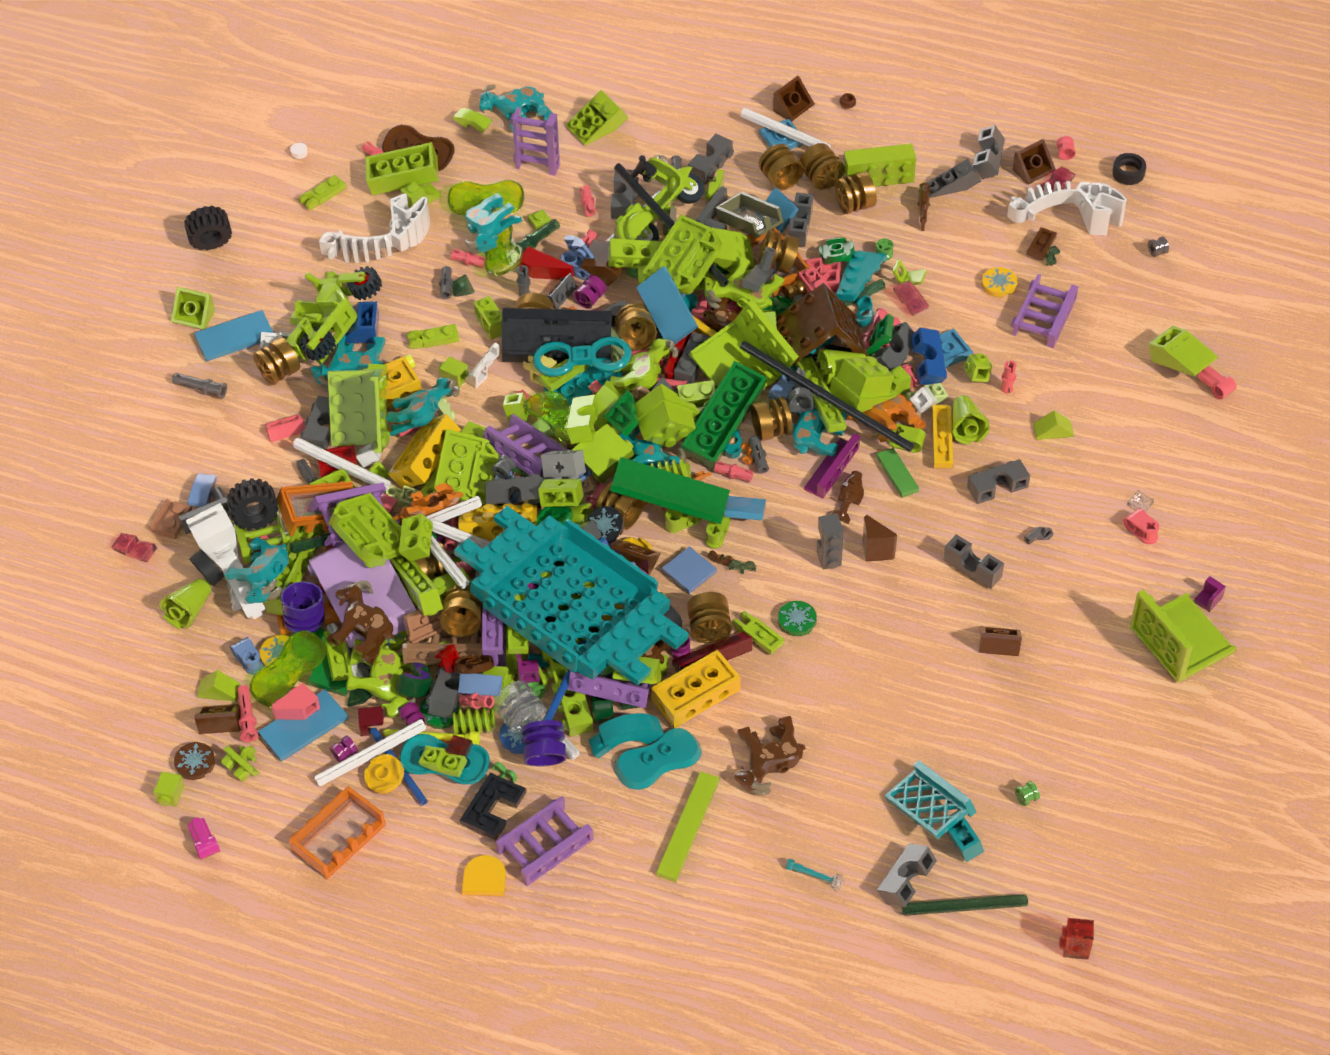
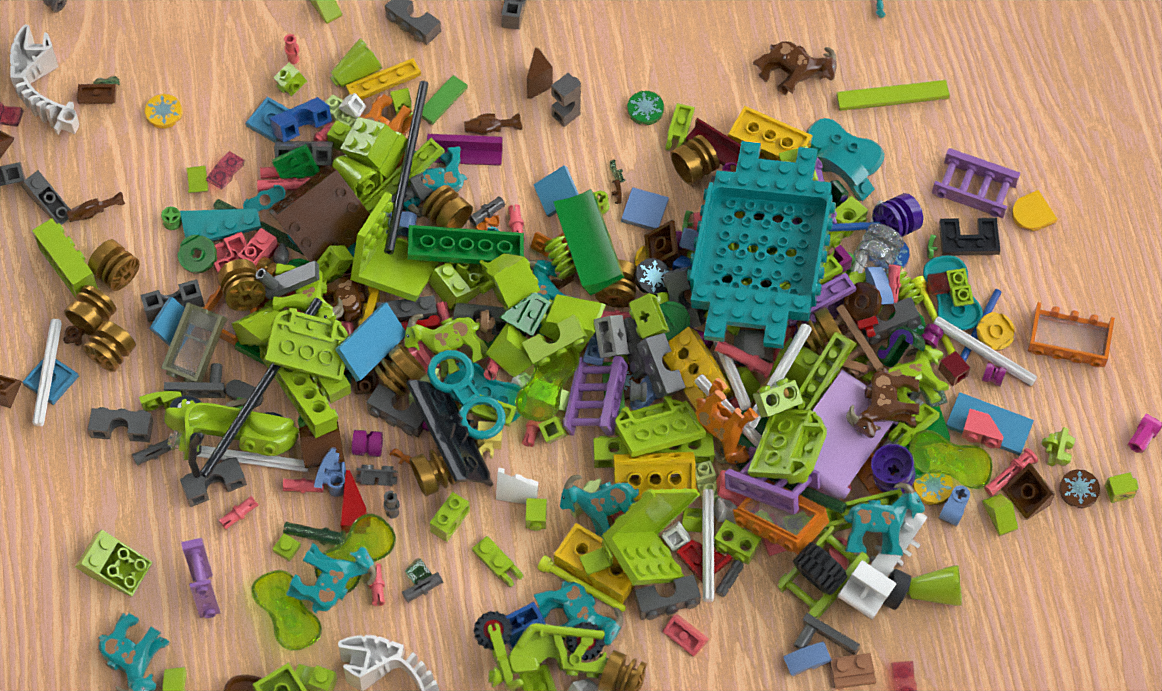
camera: 120 degrees left, 10 degrees up
(1057, 322) = (186, 42): medium lavender fence -> none

